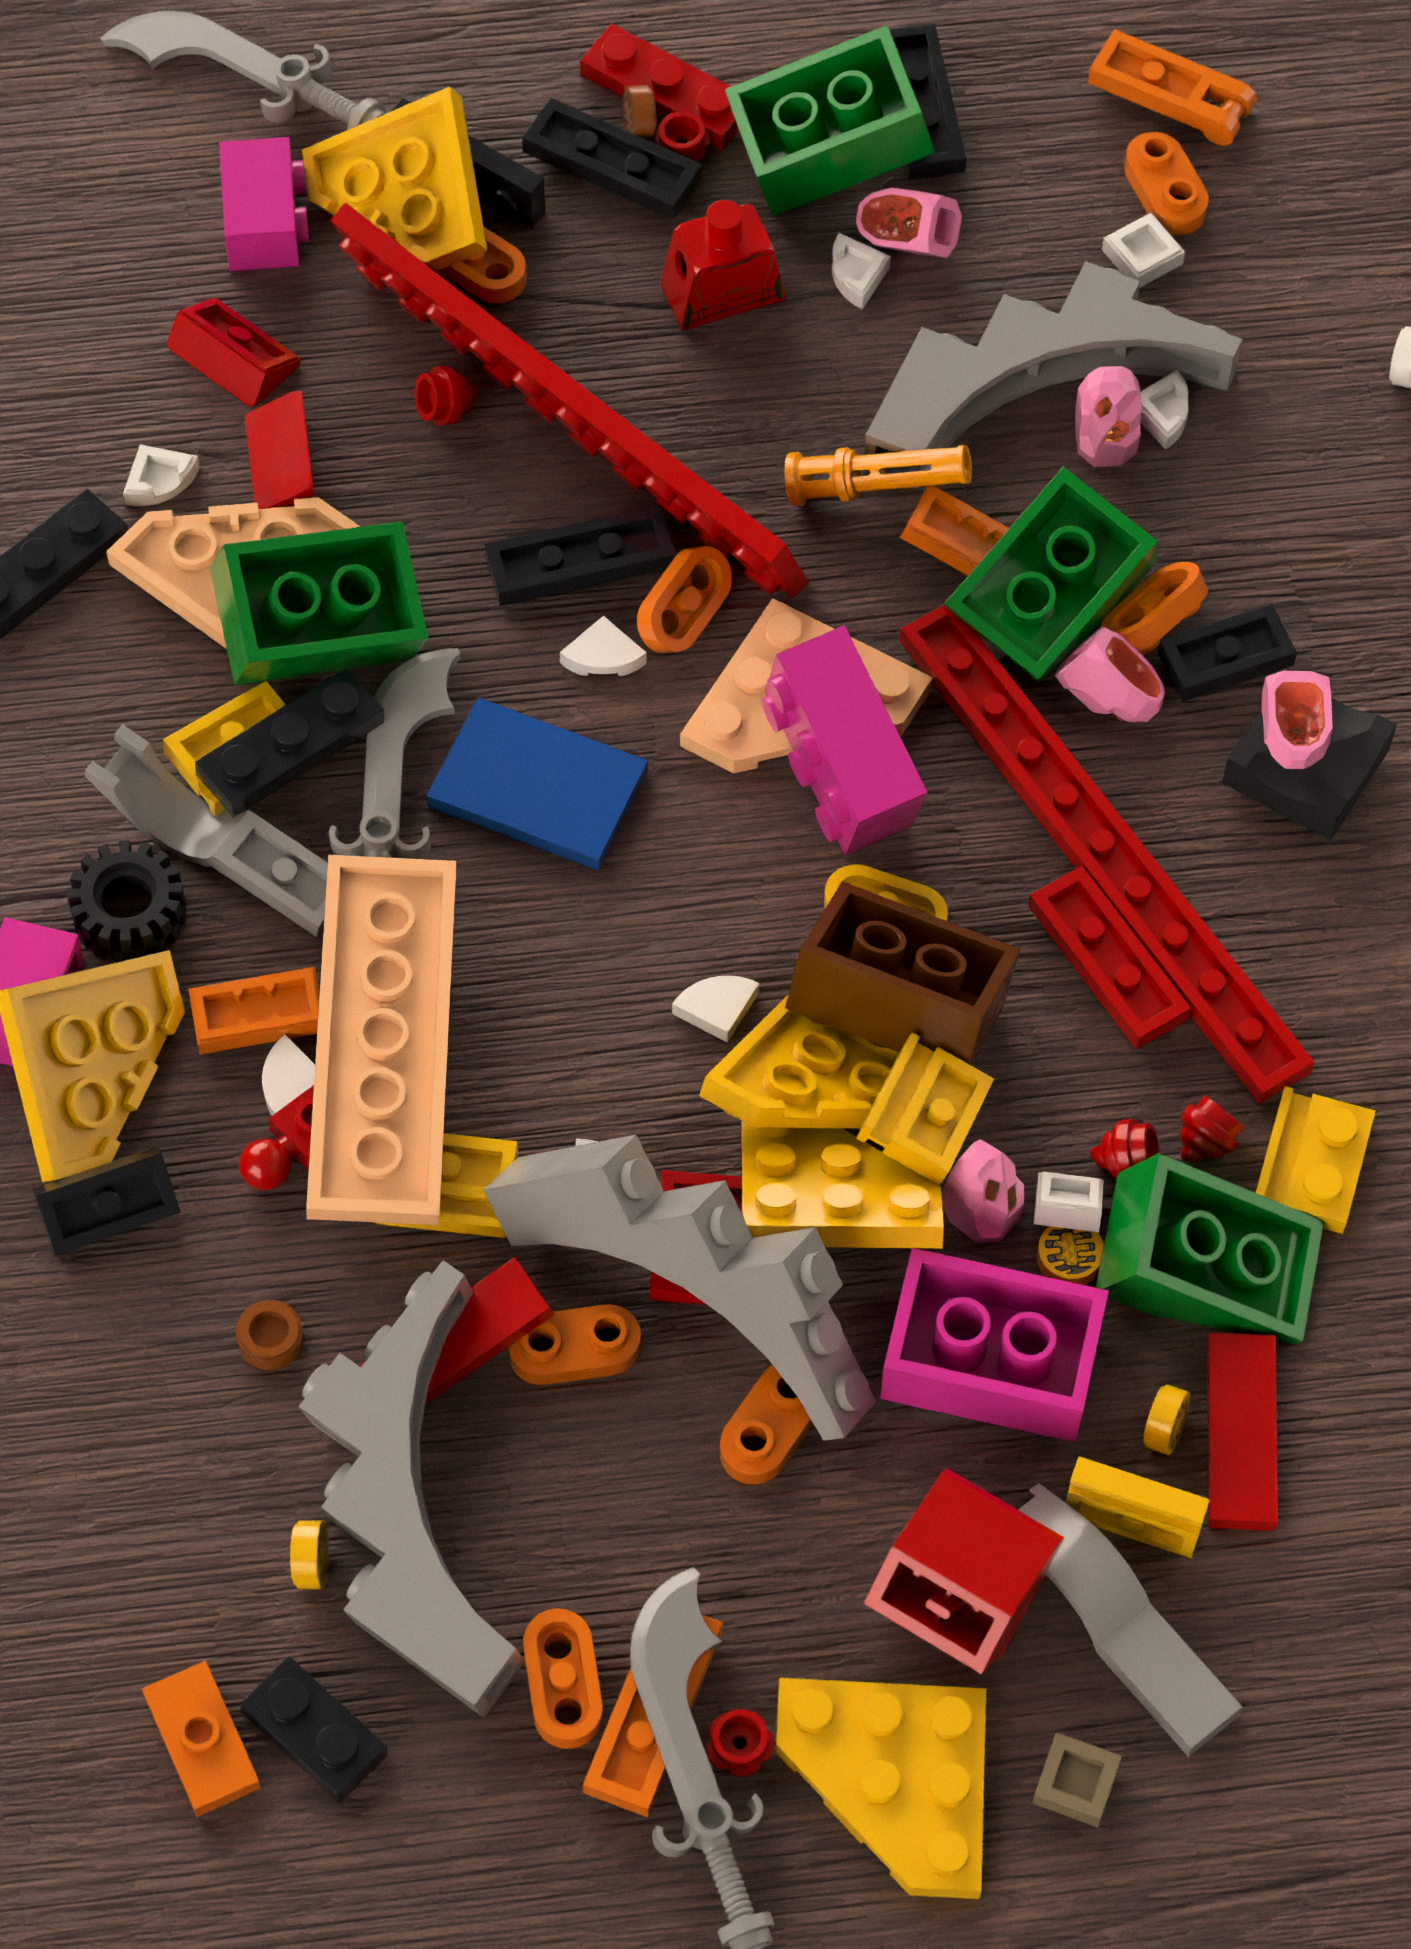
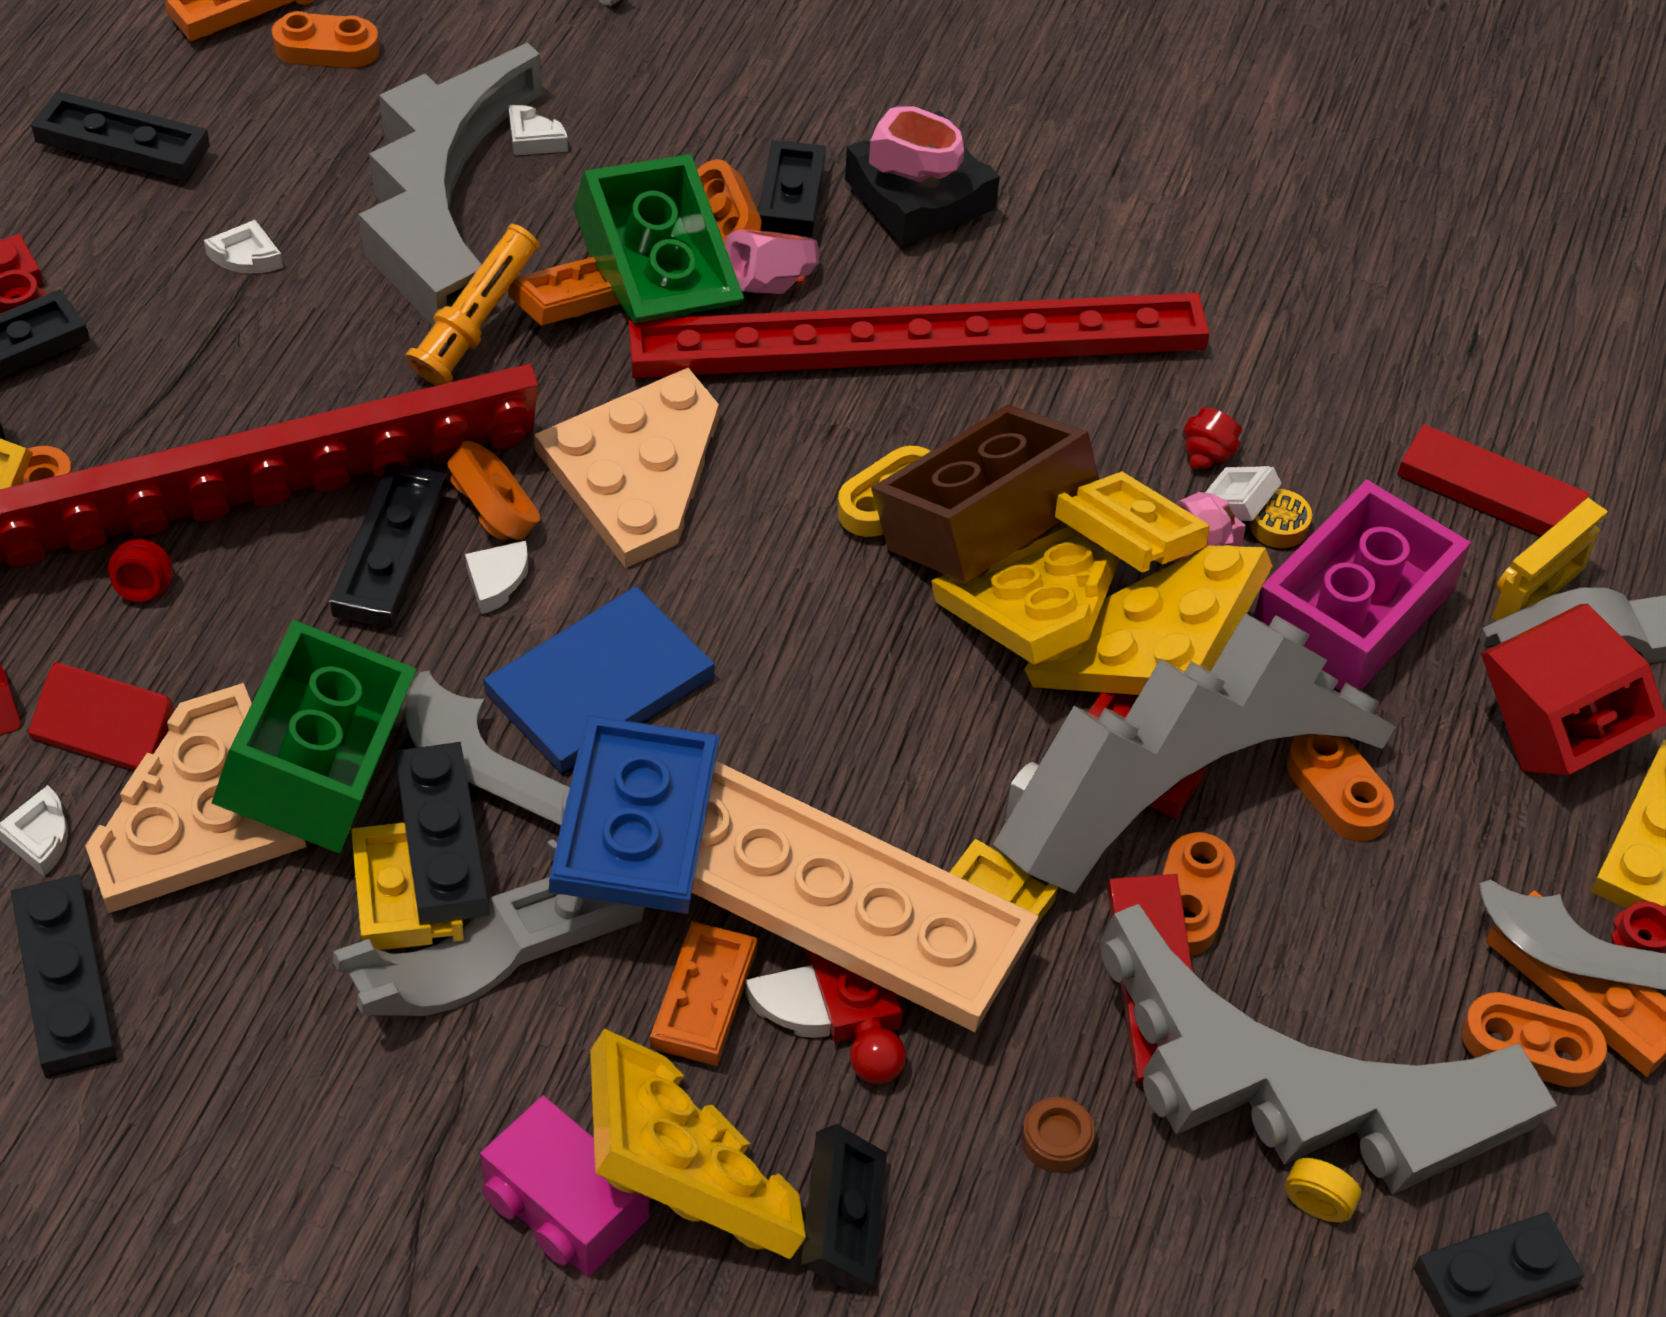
camera: 65 degrees left, 10 degrees down
(121, 871) = (512, 1017): black tyre -> none
(355, 862) = (635, 814): none -> blue tile
(716, 1004) = (910, 646): white tile -> none
(720, 266) = (183, 293): red torso -> none
(830, 121) = (105, 180): green brick -> none
(842, 741) = (740, 422): dark pink brick -> none
(910, 221) = (233, 191): rock -> none
(1108, 416) = (526, 155): bright pink rock -> none
(1109, 957) = (1025, 374): red plate -> none
(1143, 250) = (373, 76): white tile -> none
(1166, 1419) = (1470, 516): yellow tile -> none
(1207, 1131) = (1217, 383): red plate -> none
(1208, 1252) = (1328, 431): green slope -> none
(1316, 1156) = (1274, 340): yellow plate -> none

